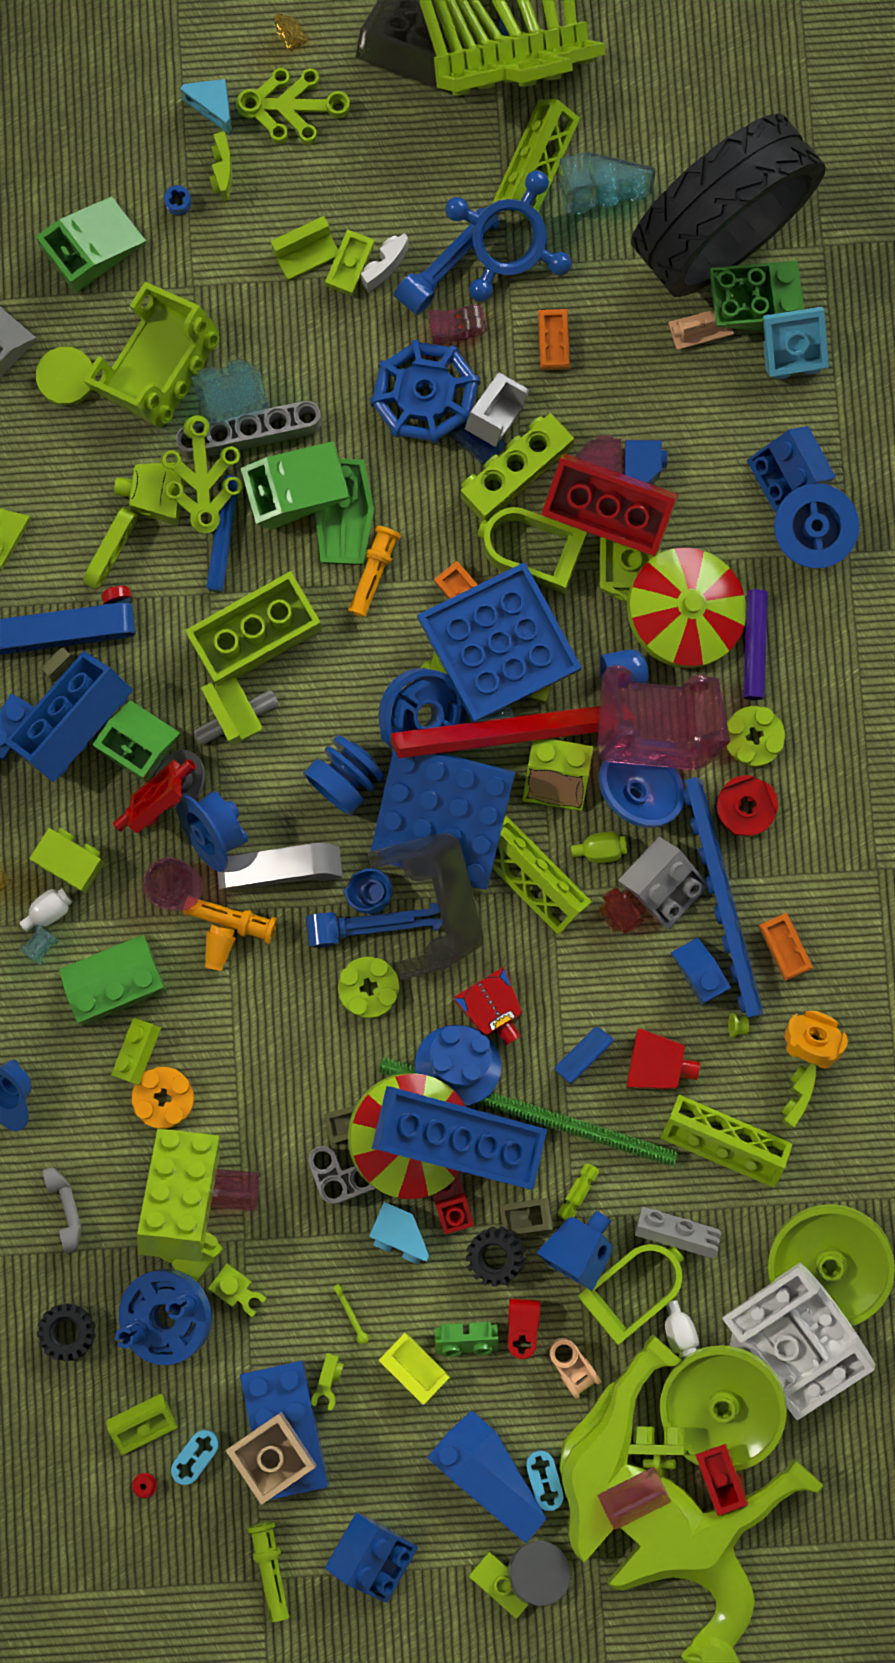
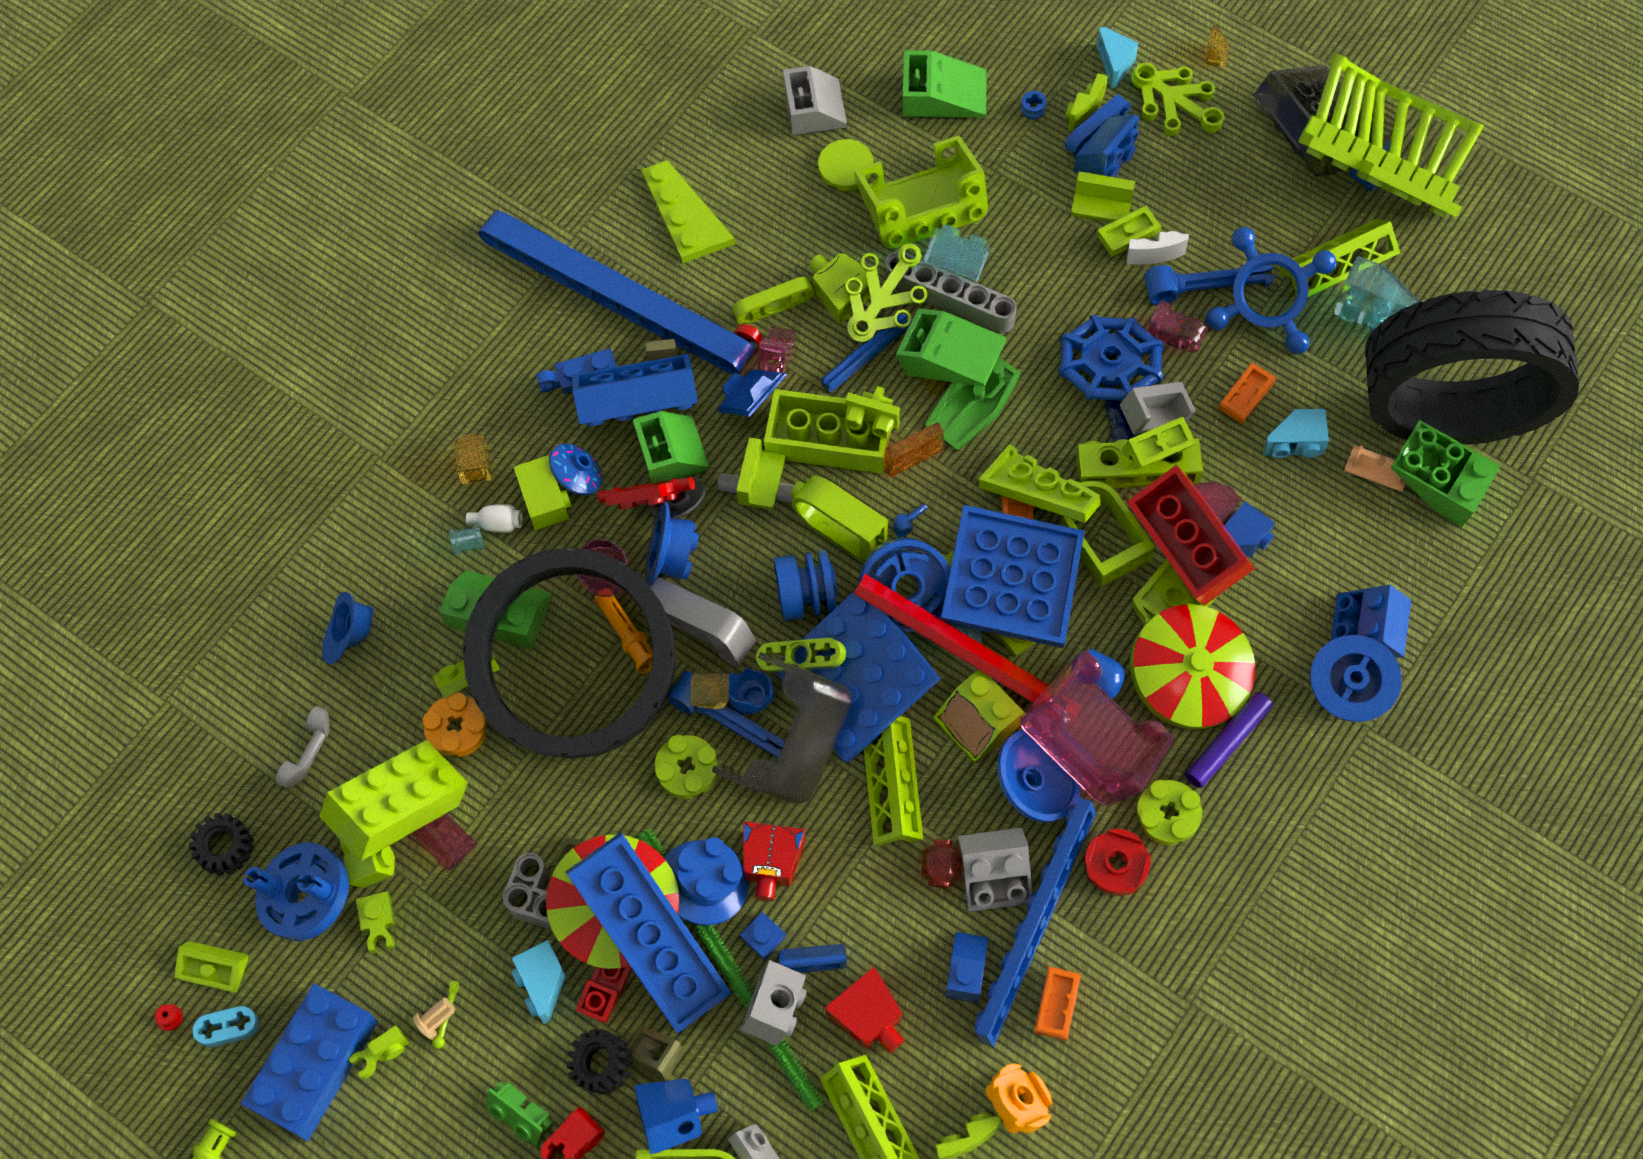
camera: 40 degrees right, 15 degrees down
(77, 819) = (575, 469): none -> blue dish
(151, 588) = (778, 347): none -> clear pink leg
(161, 644) = (748, 392): none -> blue piece
(218, 946) = (598, 643): light orange cone -> none
(248, 181) = (1080, 136): none -> blue beam
(271, 597) = (873, 409): none -> lime hips
(271, 1458) = (270, 1064): tan slope -> none
(276, 199) = (1109, 147): none -> blue slope
(291, 1025) = (492, 607): none -> black tyre
(323, 697) = (839, 517): none -> lime window
(331, 601) = (914, 449): none -> clear orange plate
(343, 916) = (710, 690): none -> clear yellow slope
(346, 1324) = (434, 1017): none -> tan piece
(372, 661) = (902, 522): none -> blue hand
(378, 558) = (972, 451): light orange pin -> none
(412, 828) = (812, 645): none -> lime beam
(414, 1368) = (455, 1100): neon yellow panel -> none
(449, 552) = (1029, 483): none -> lime wing
(528, 444) = (1159, 443): none -> lime hinge
(533, 1068) = (763, 936): none -> blue plate
(578, 1191) = (714, 1066): lime axle -> none
(587, 1129) = (762, 1016): none -> light grey brick
(602, 847) = (967, 802): lime plant -> none
(623, 343) = (1299, 434): none -> medium azure slope
(737, 1025) = (963, 1036): lime piece -> none
(795, 342) = (1450, 527): medium azure plate -> none

